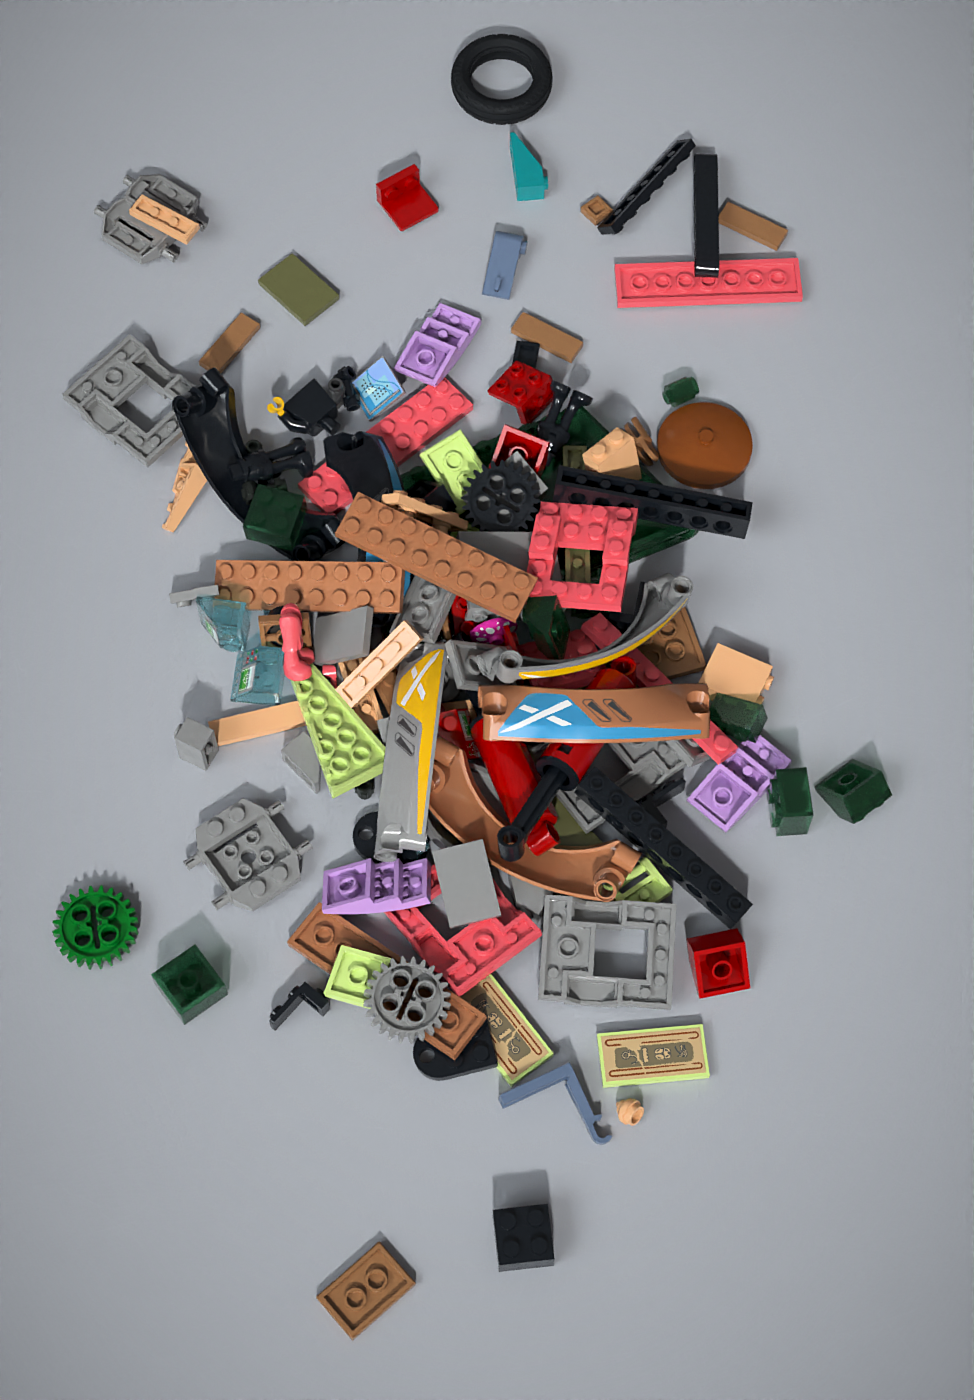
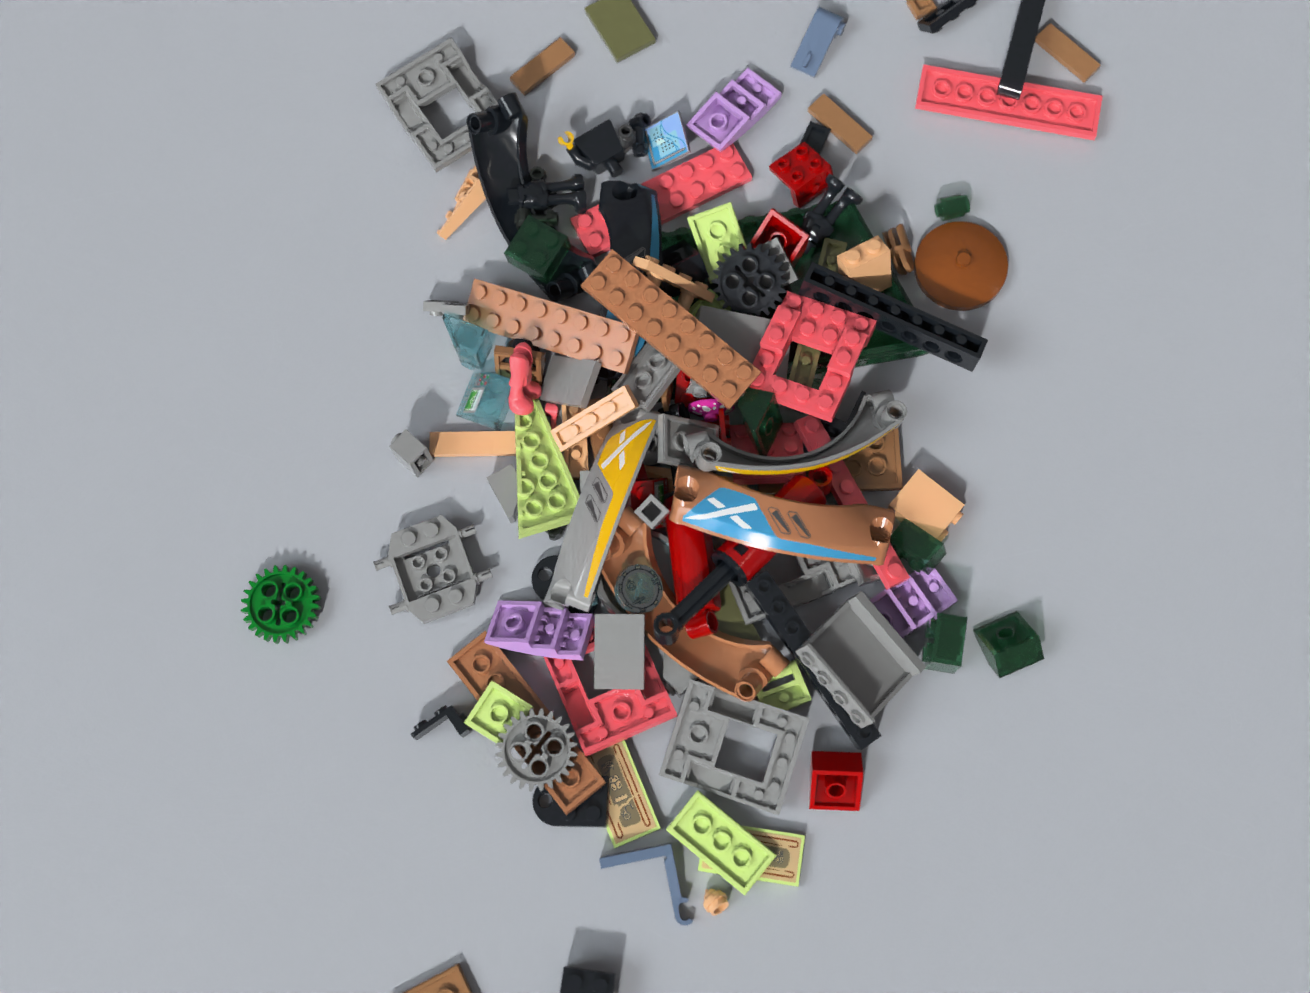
camera: 20 degrees right, 10 degrees up
(189, 984) = (348, 681): clear green brick -> none
(465, 735) = (652, 511): none -> light grey brick
(469, 817) = (638, 589): none -> tile
(619, 1050) = (721, 842): none -> yellowish green tile
(654, 800) = (810, 614): black bracket -> none
(712, 832) = (860, 659): none -> light grey panel

